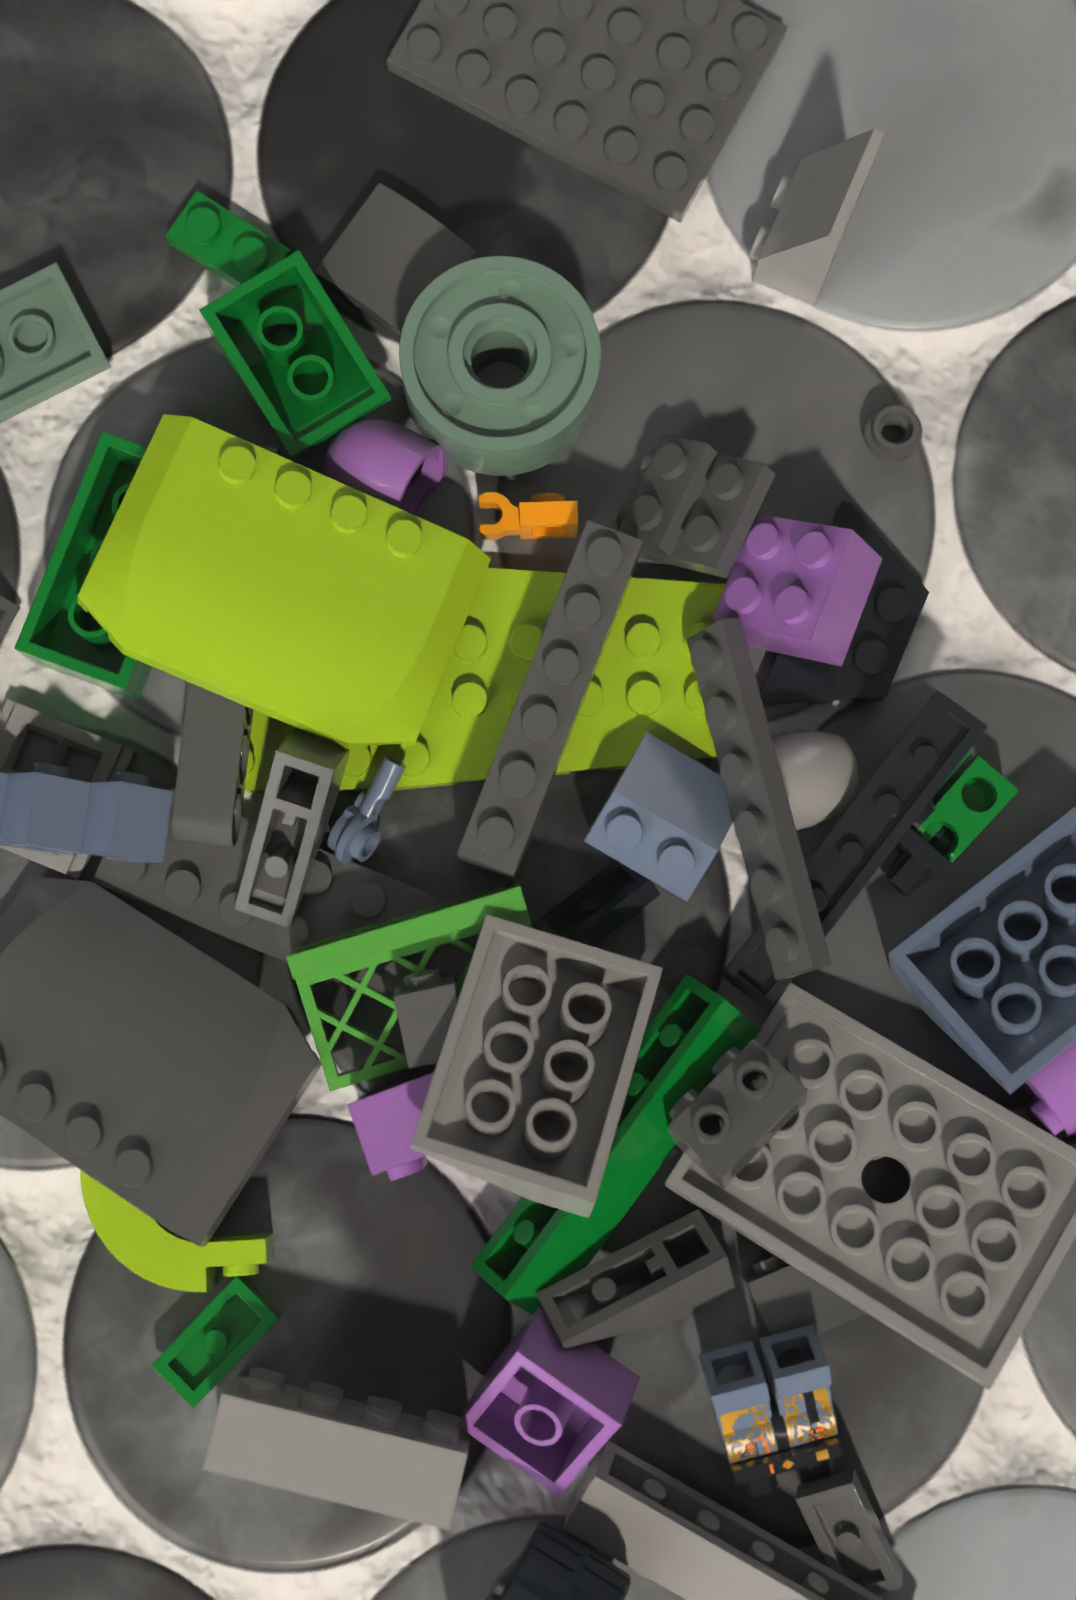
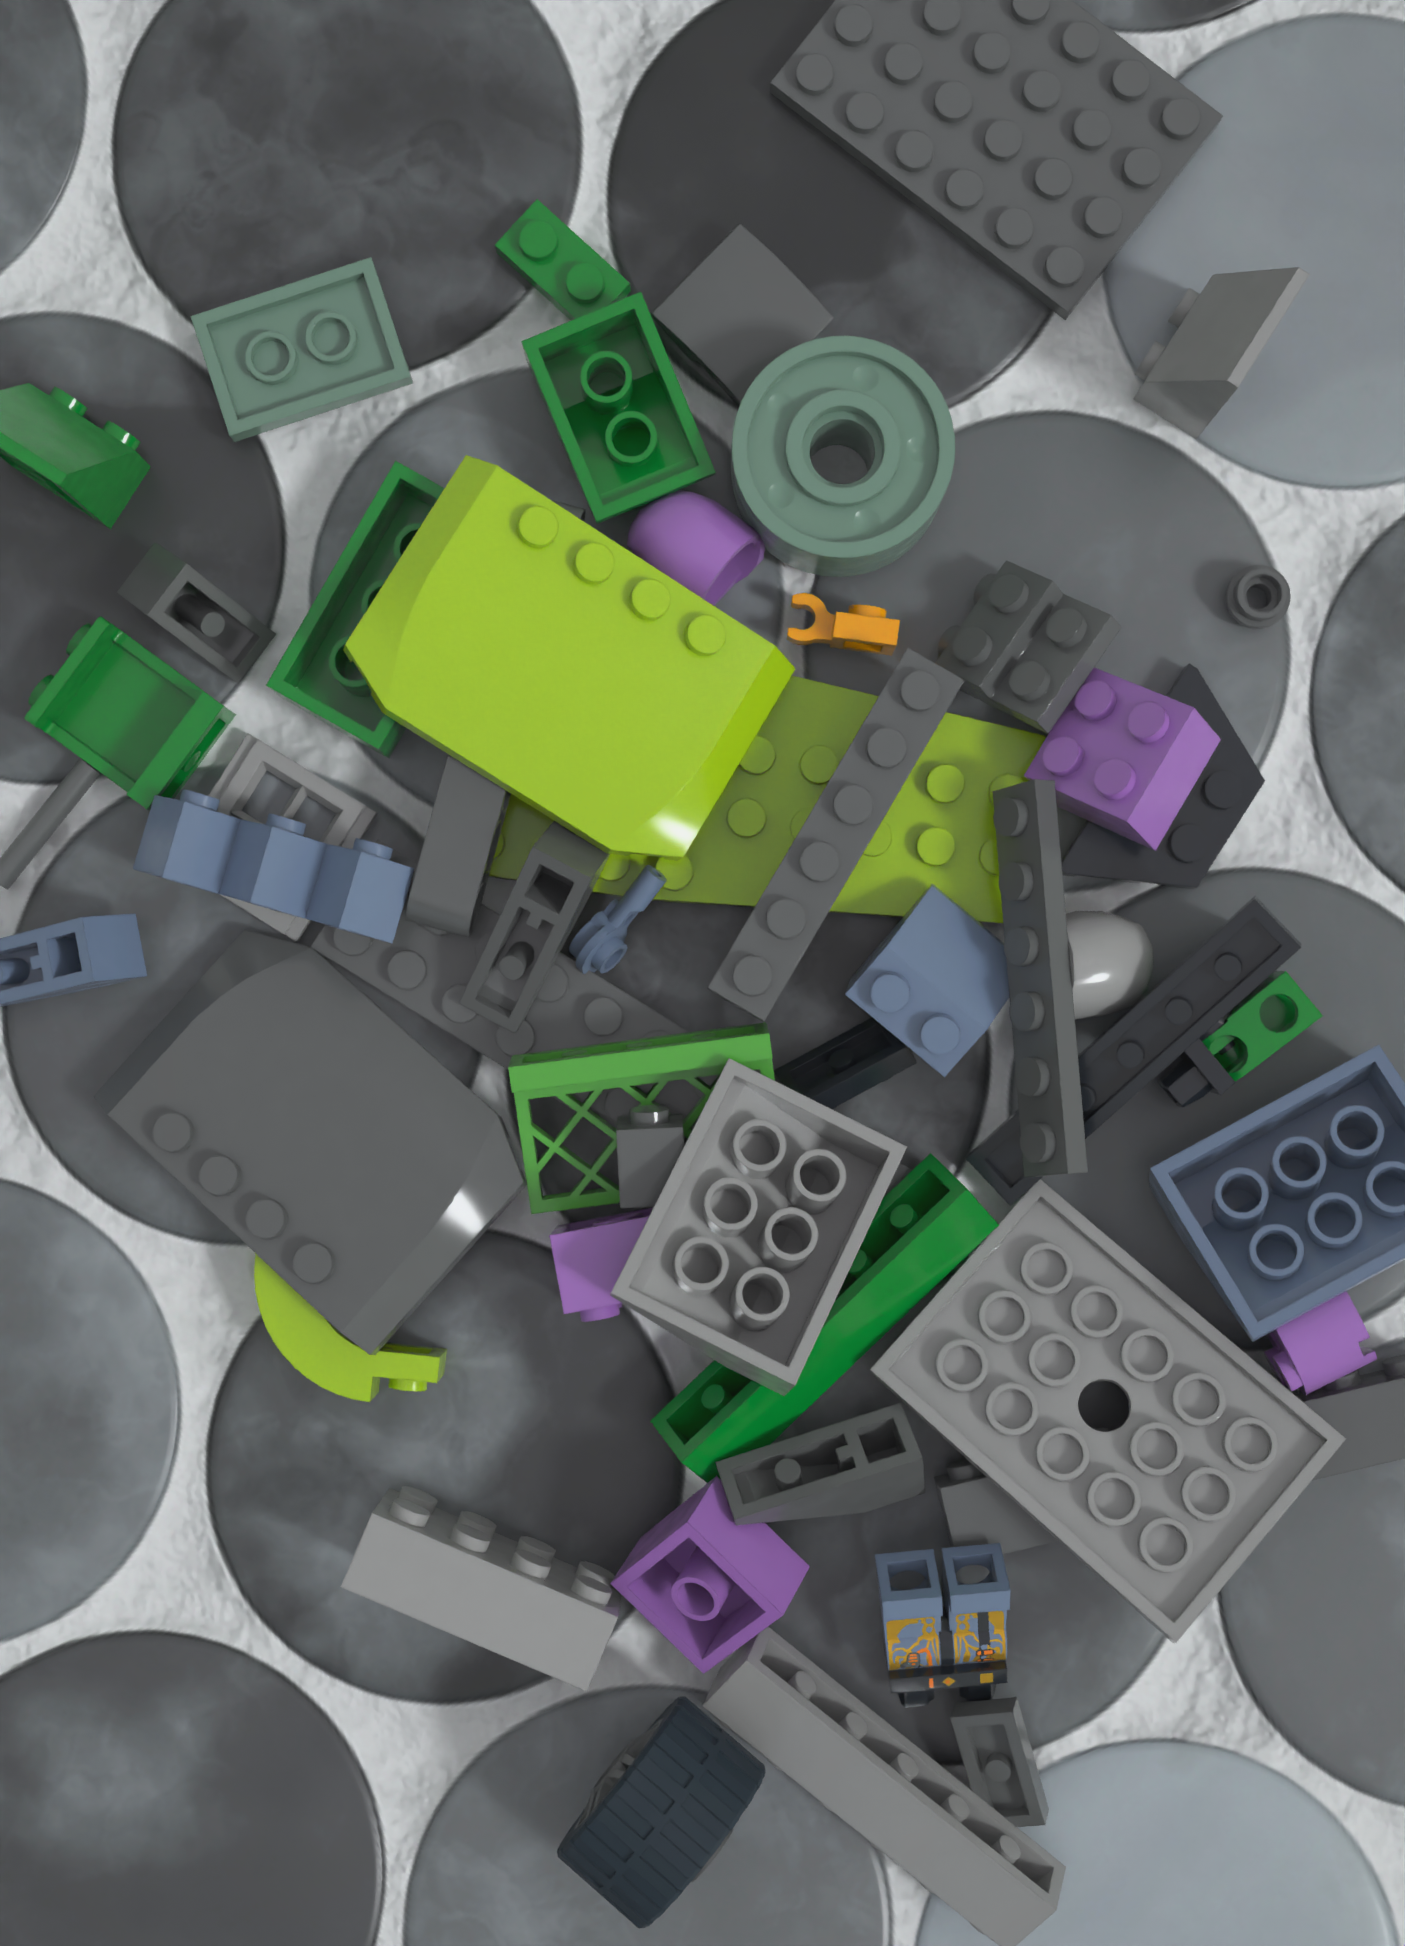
camera: 15 degrees right, 5 degrees up
(216, 1340) = (371, 1452): green plate -> none
(735, 1111) = (958, 1309): dark grey brick -> none

